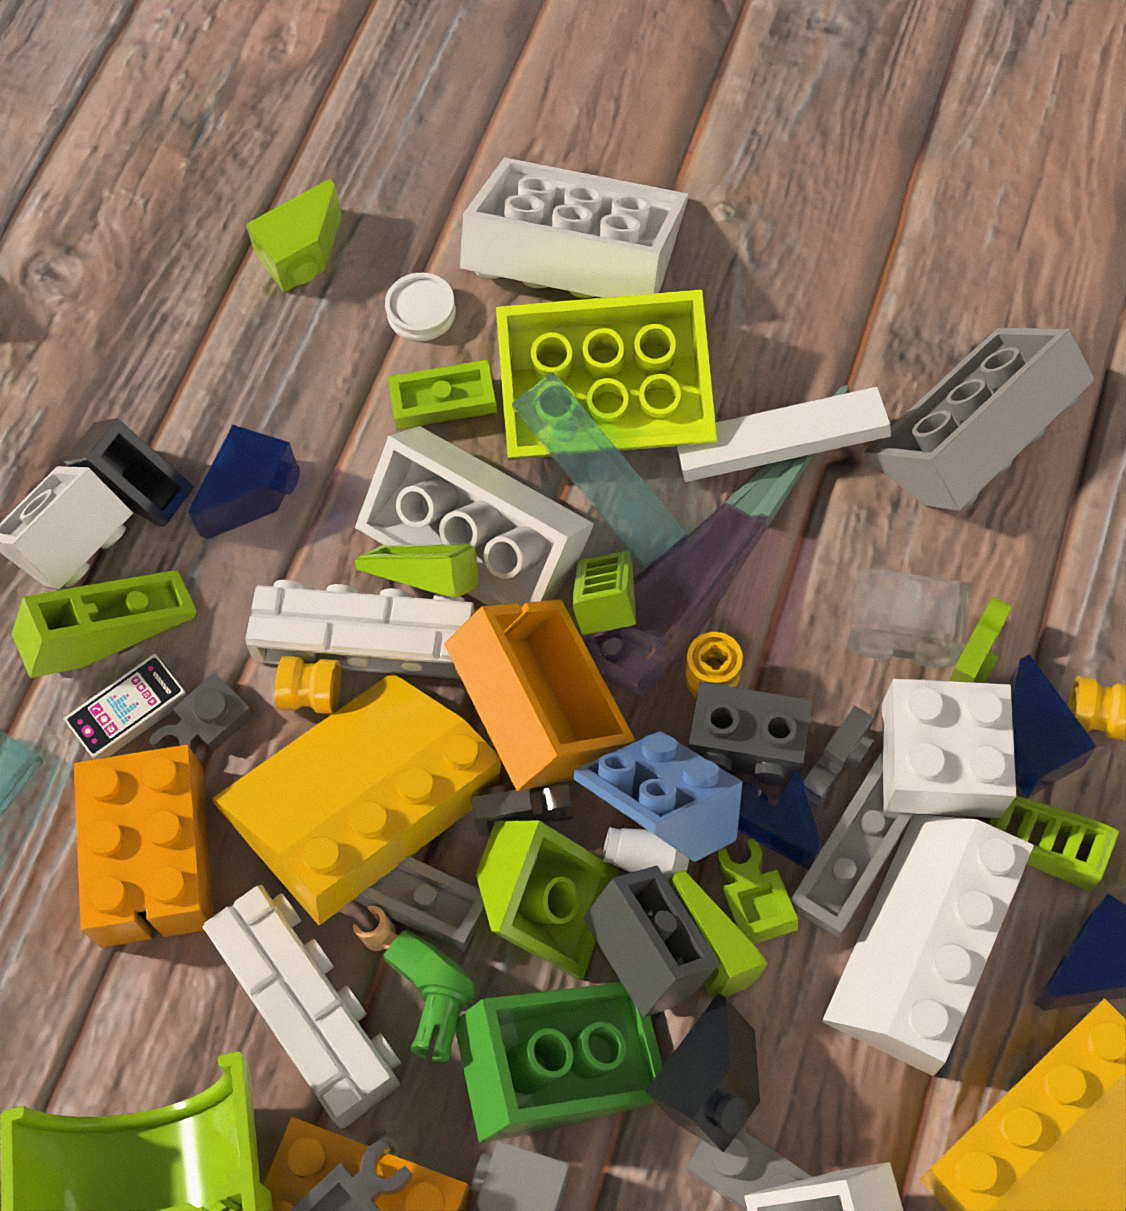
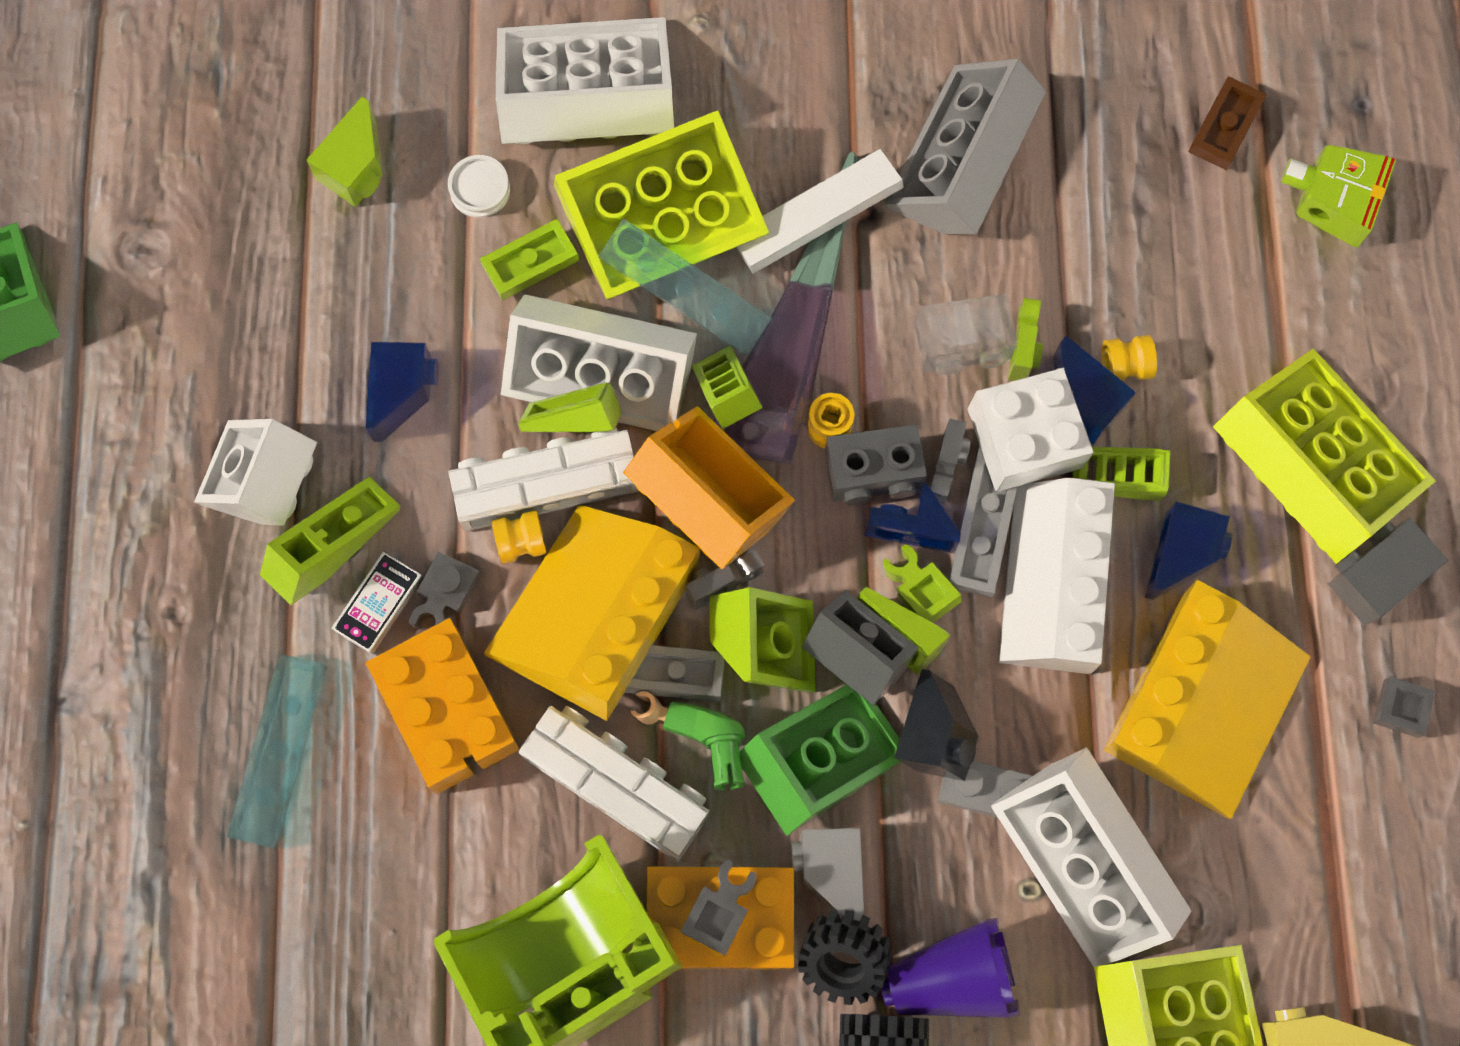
camera: 25 degrees left, 10 degrees up
(131, 470) = (296, 405): black slope -> none
(641, 849) = (830, 580): white cone -> none
(669, 793) = (836, 532): medium blue slope -> none

